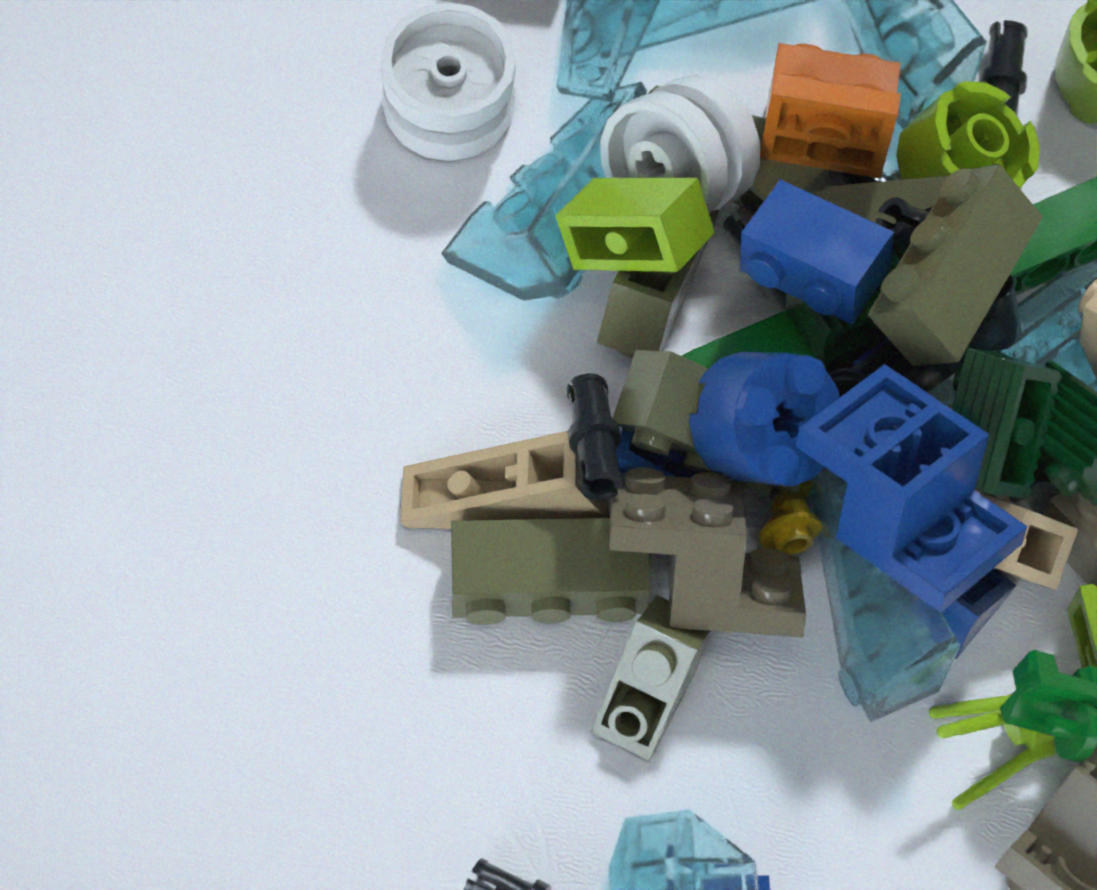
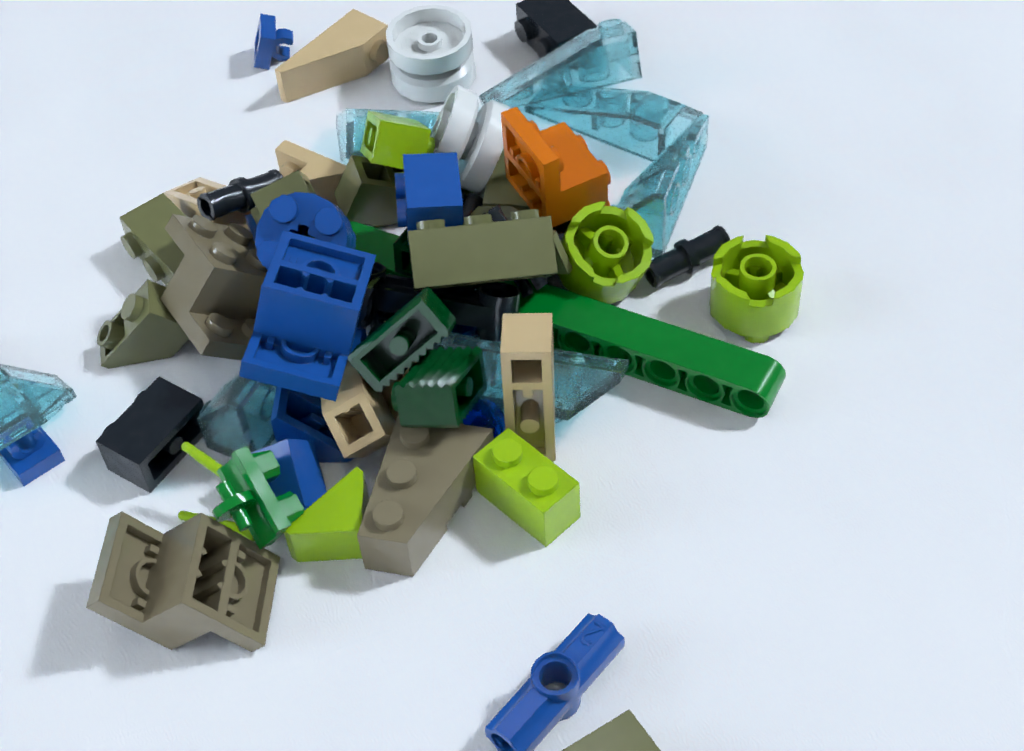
camera: 60 degrees right, 15 degrees down
(224, 235) = (268, 40): none -> blue tile
(334, 166) = (336, 56): none -> tan slope
(552, 338) = (321, 171): none -> tan slope
(833, 761) = (150, 432): none -> black brick
(984, 673) = (298, 470): none -> blue slope

